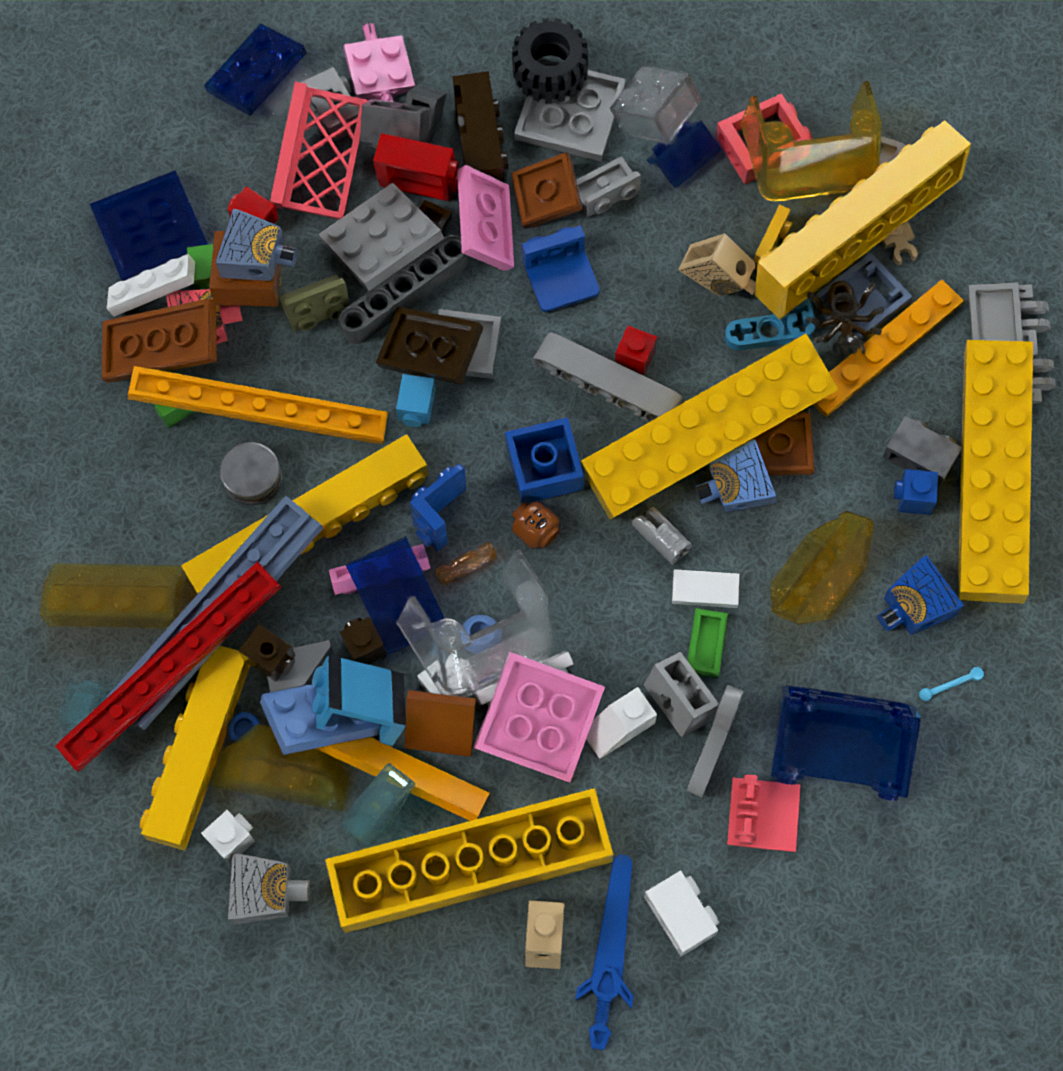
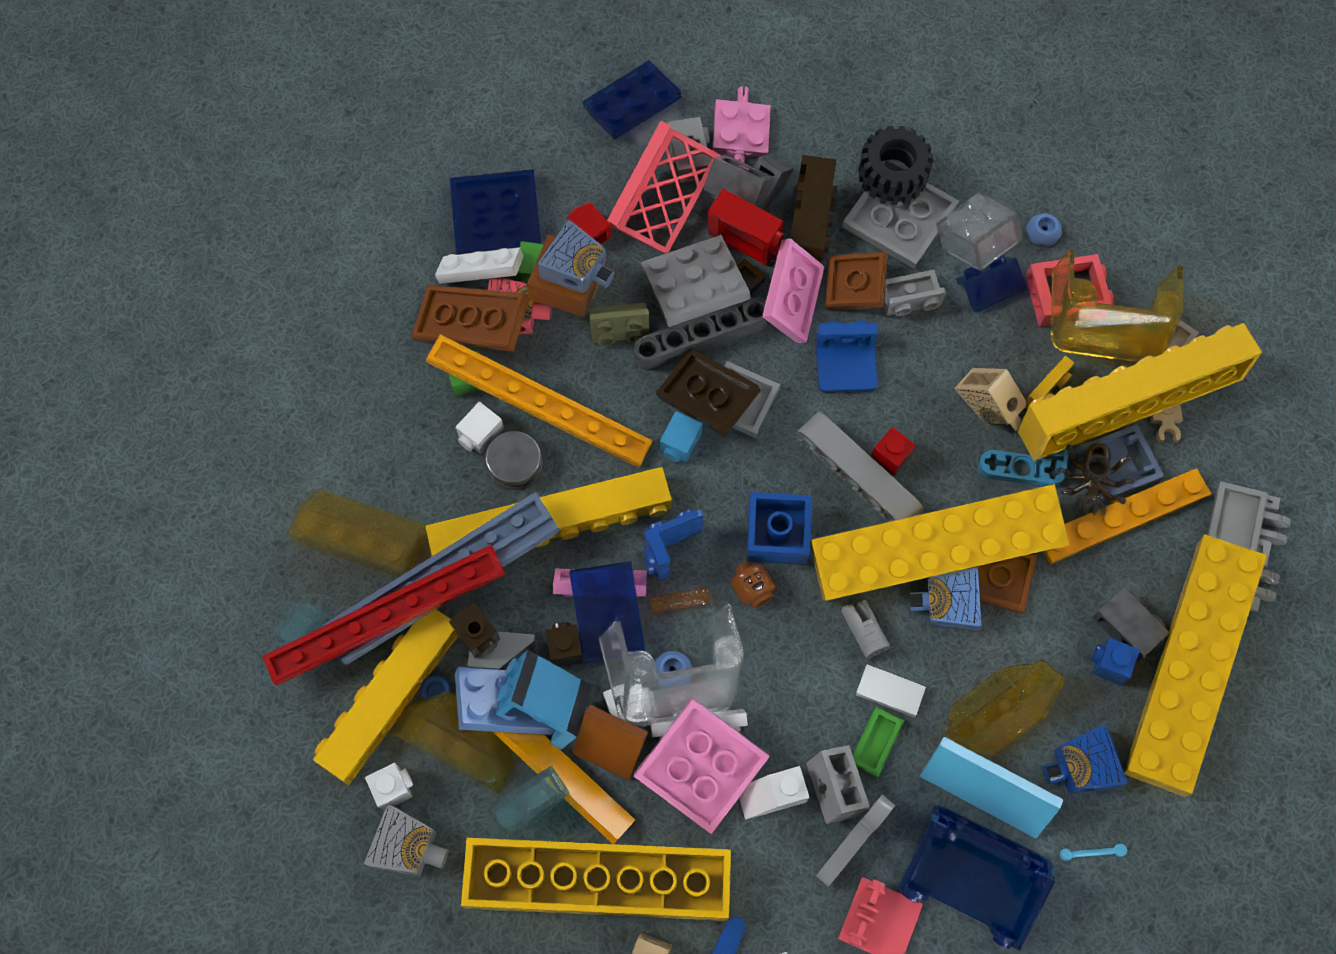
camera: 15 degrees right, 0 degrees up
(204, 452) = (479, 428): none -> white brick
(718, 92) = (1044, 237): none -> medium blue plate
(832, 650) = (991, 788): none -> medium azure tile

